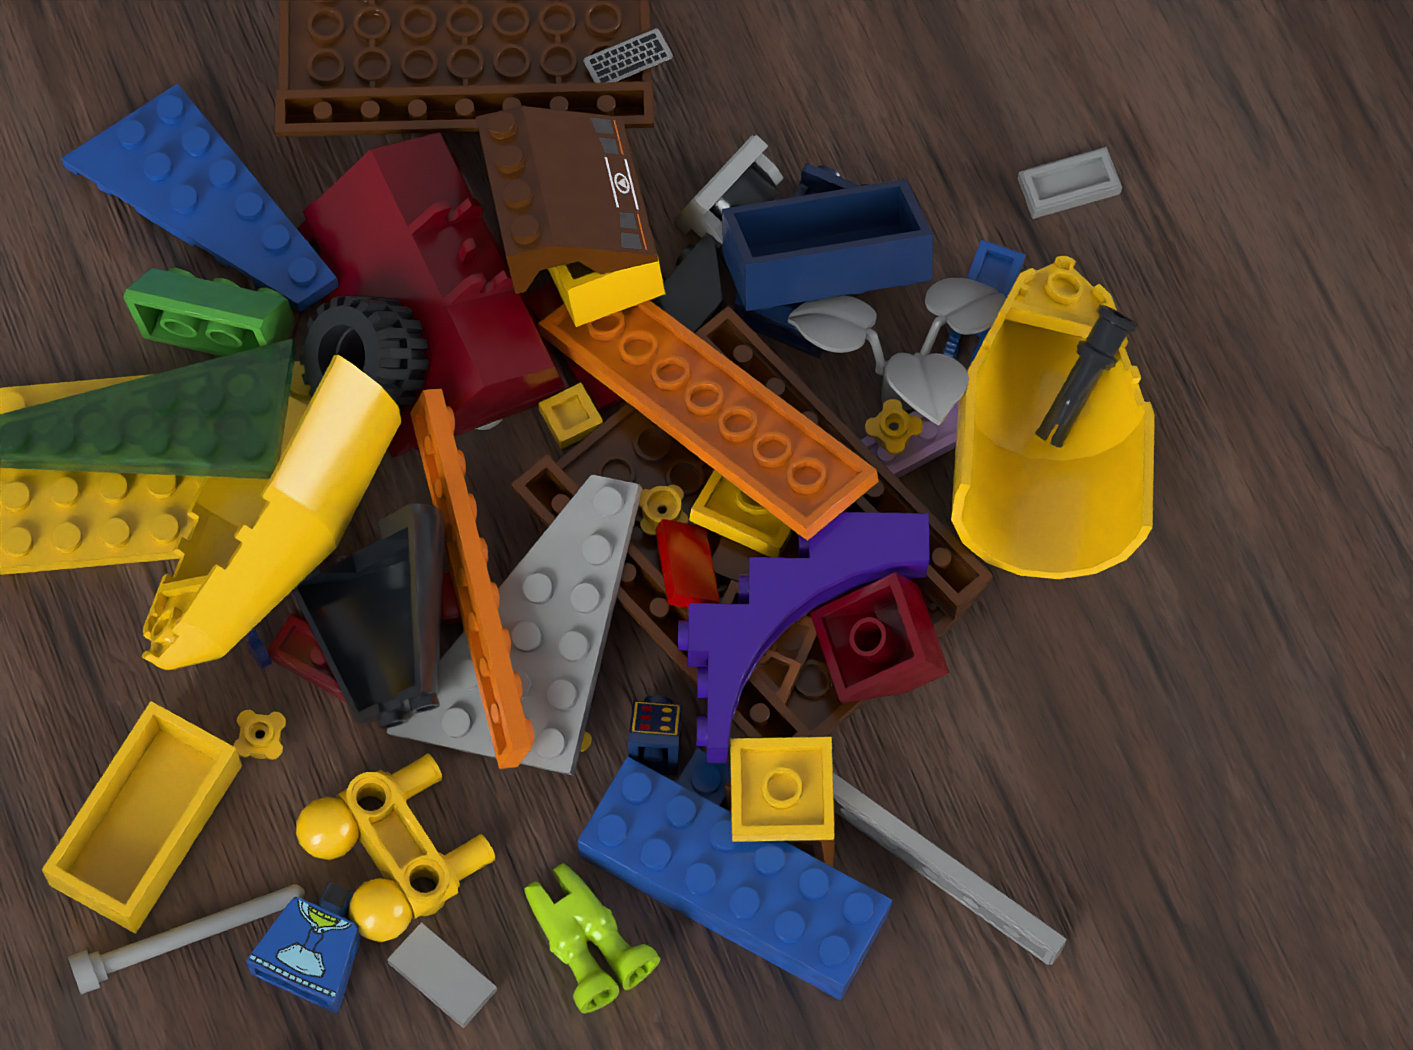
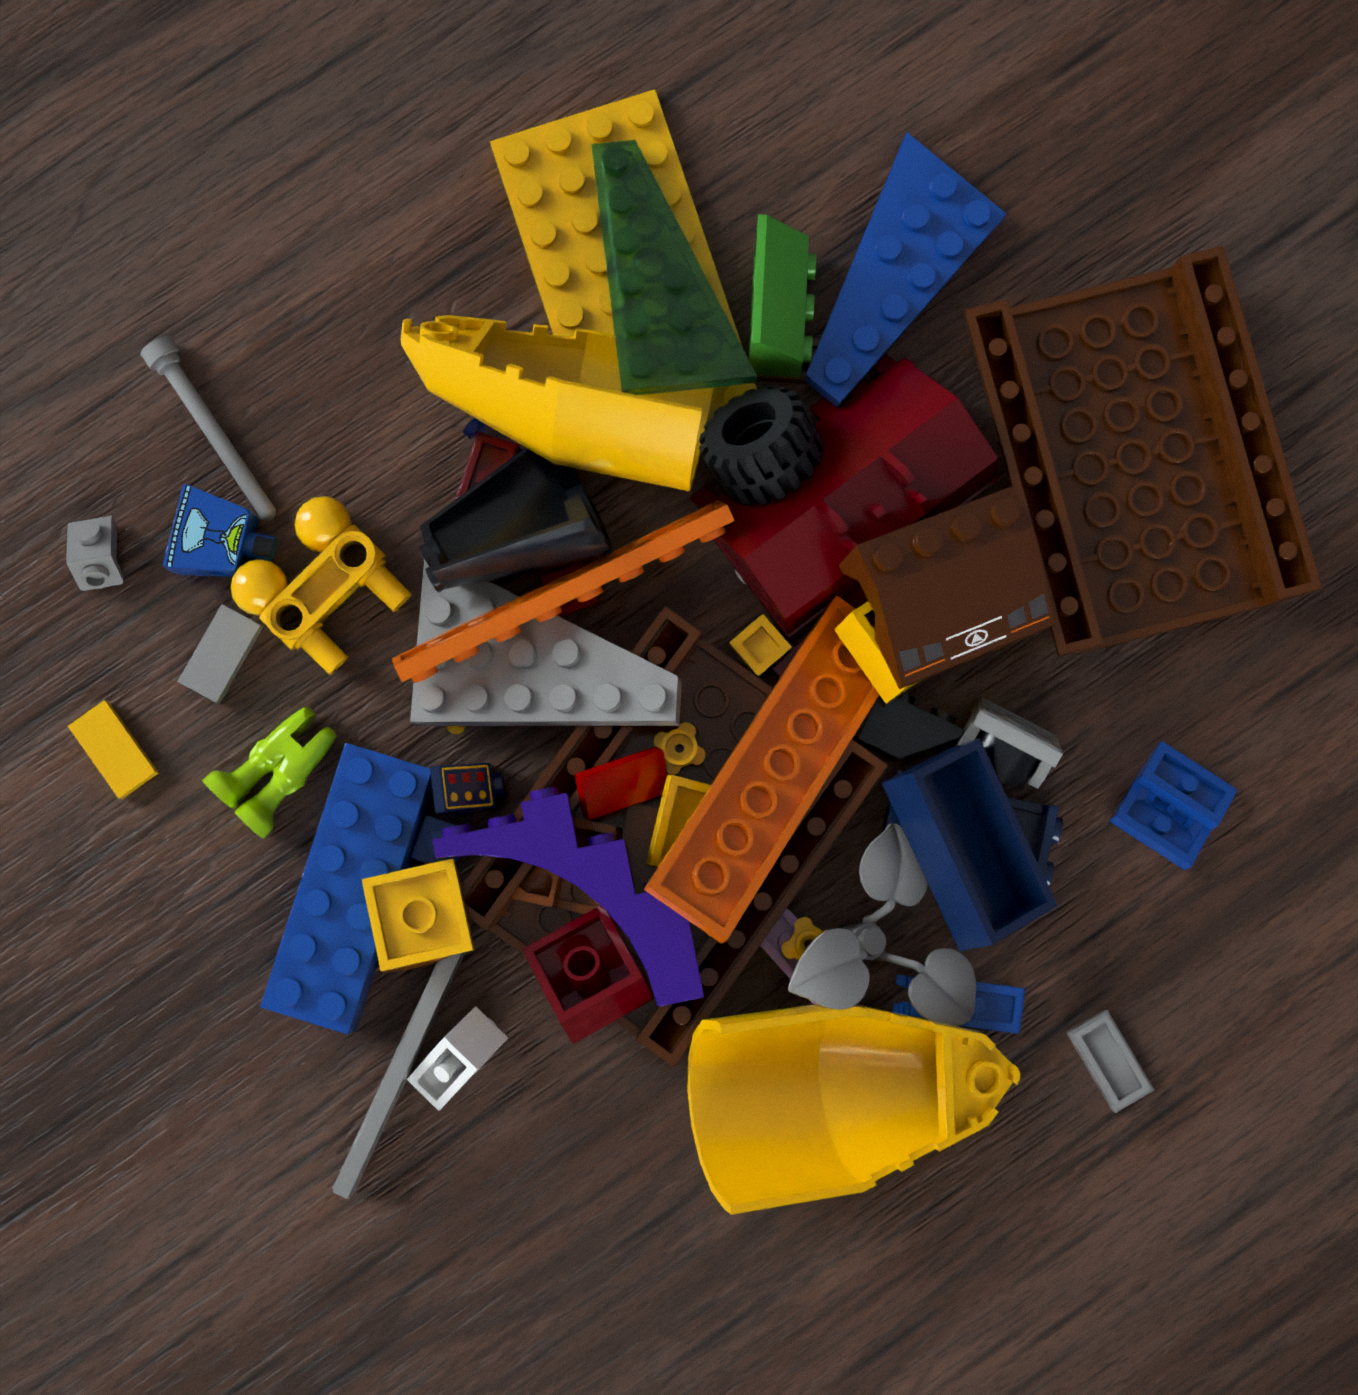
camera: 80 degrees right, 15 degrees up
(142, 817) = (296, 364): yellow piece -> none
(266, 747) = (409, 455): yellow plate -> none
(628, 57) = (1131, 616): sticker -> none
(826, 68) = (1173, 805): none -> blue slope
(940, 804) = (457, 1058): none -> white slope
(1095, 355) = (914, 1122): black pin -> none

